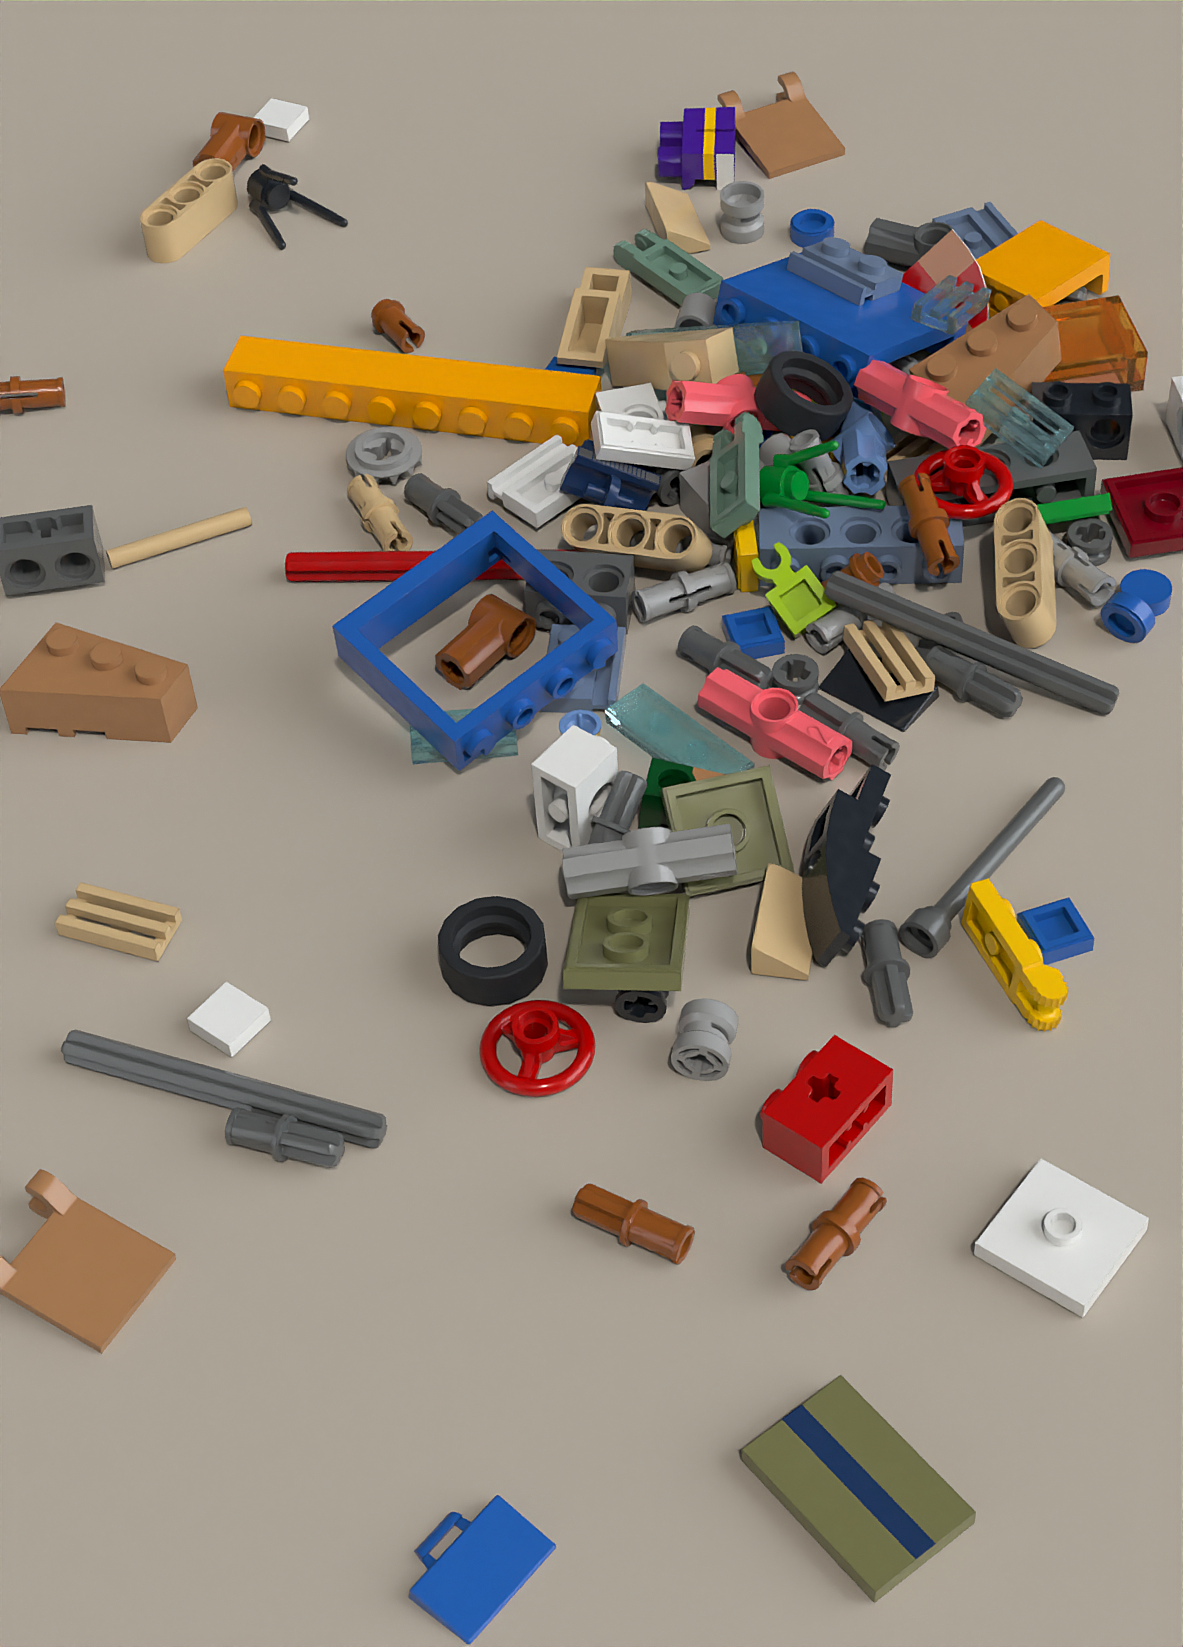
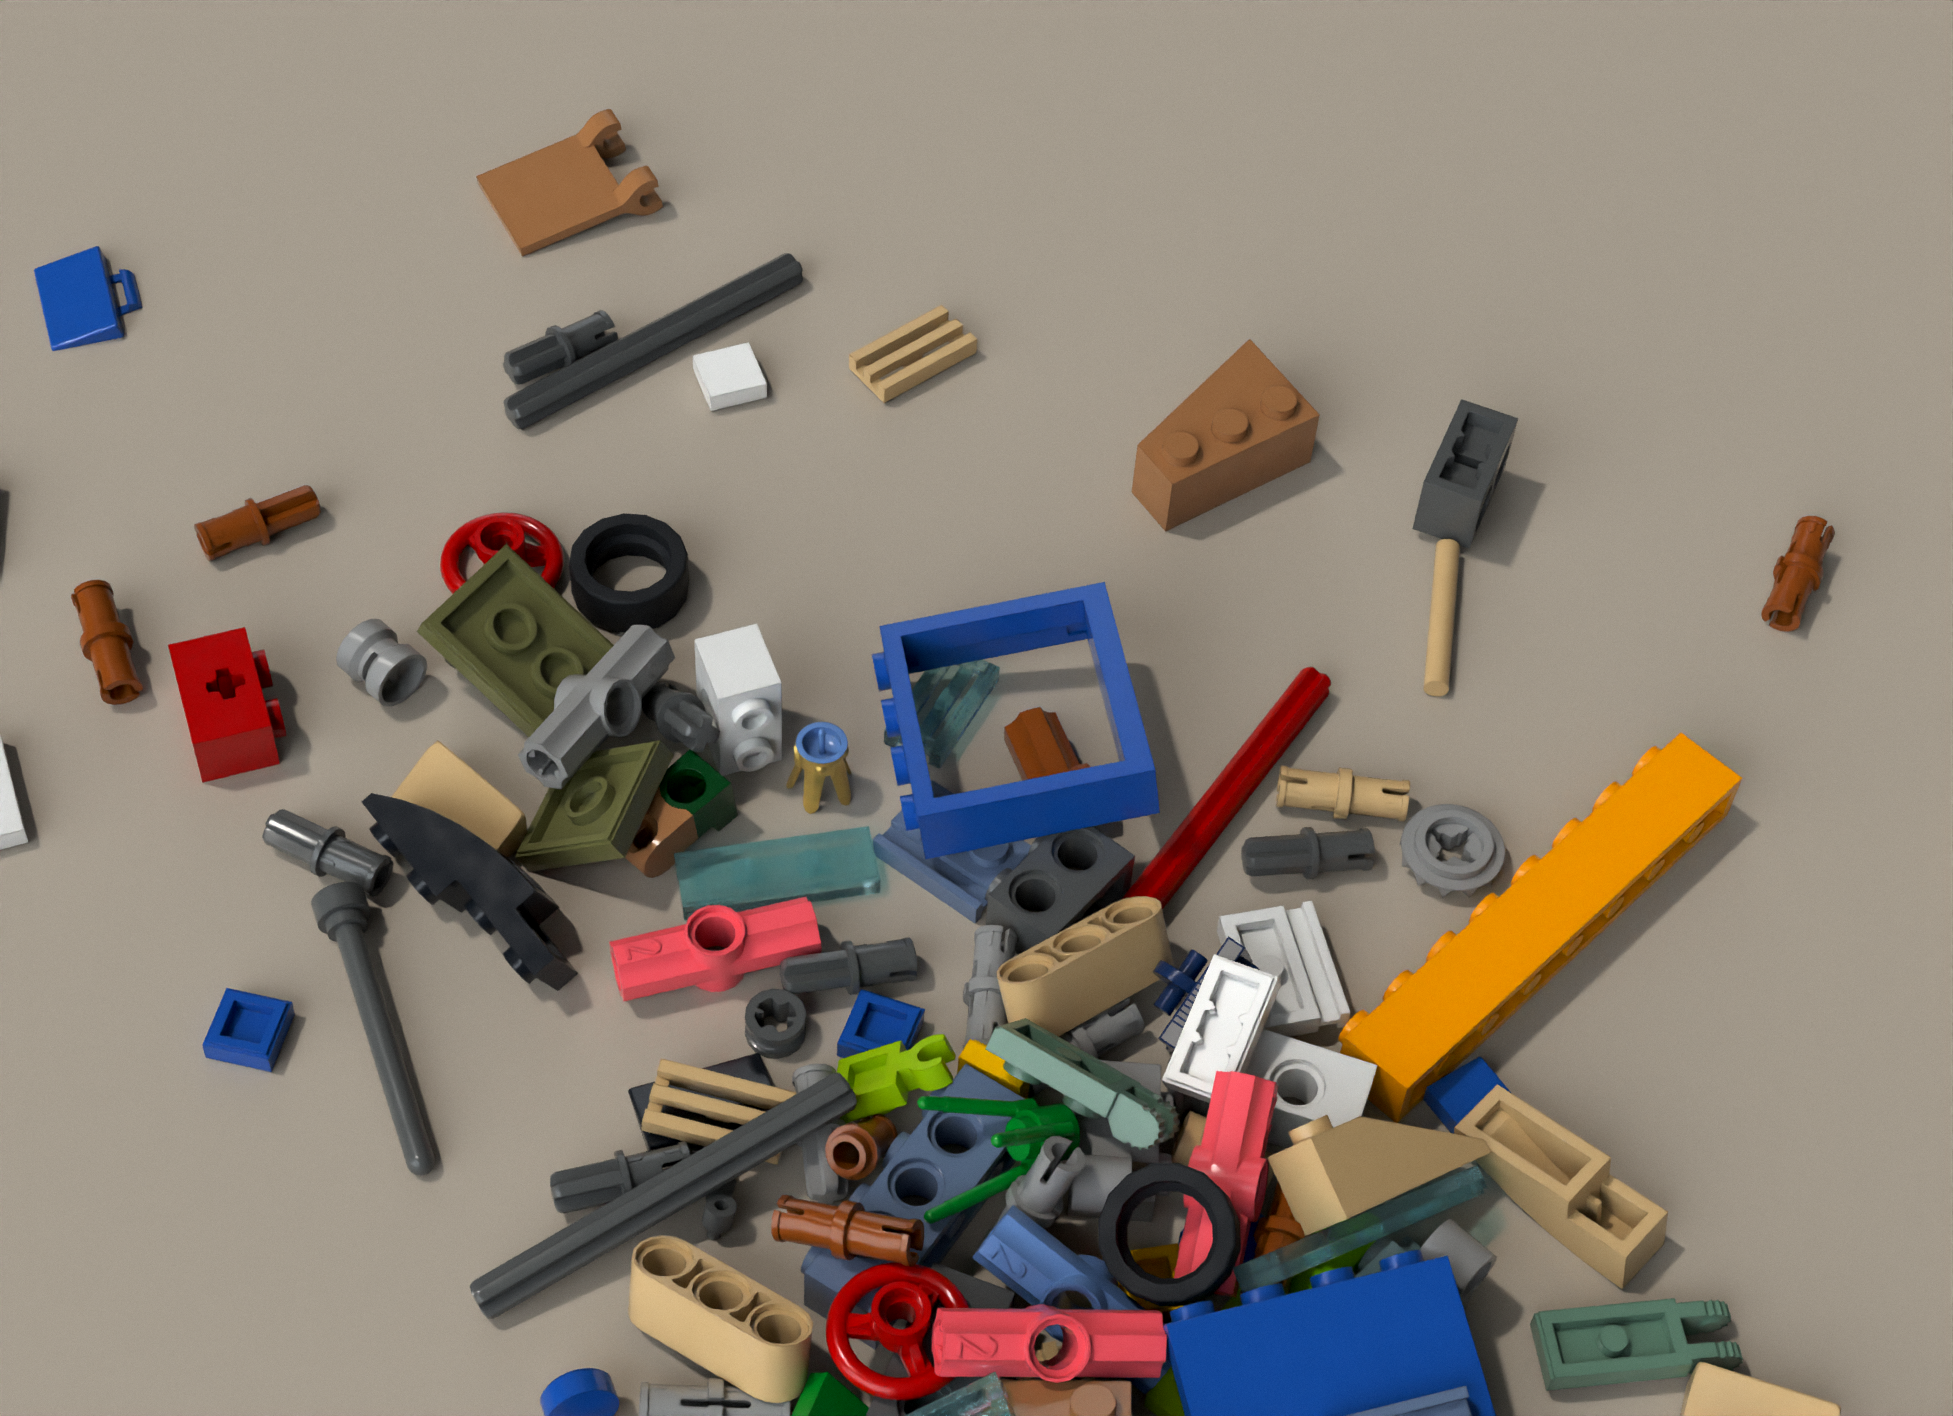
camera: 115 degrees right, 5 degrees up
(390, 318) = (1704, 980): dark orange pin -> none
(866, 741) = (653, 1013): dark grey axle -> none
(1013, 957) = (241, 952): yellow hinge -> none

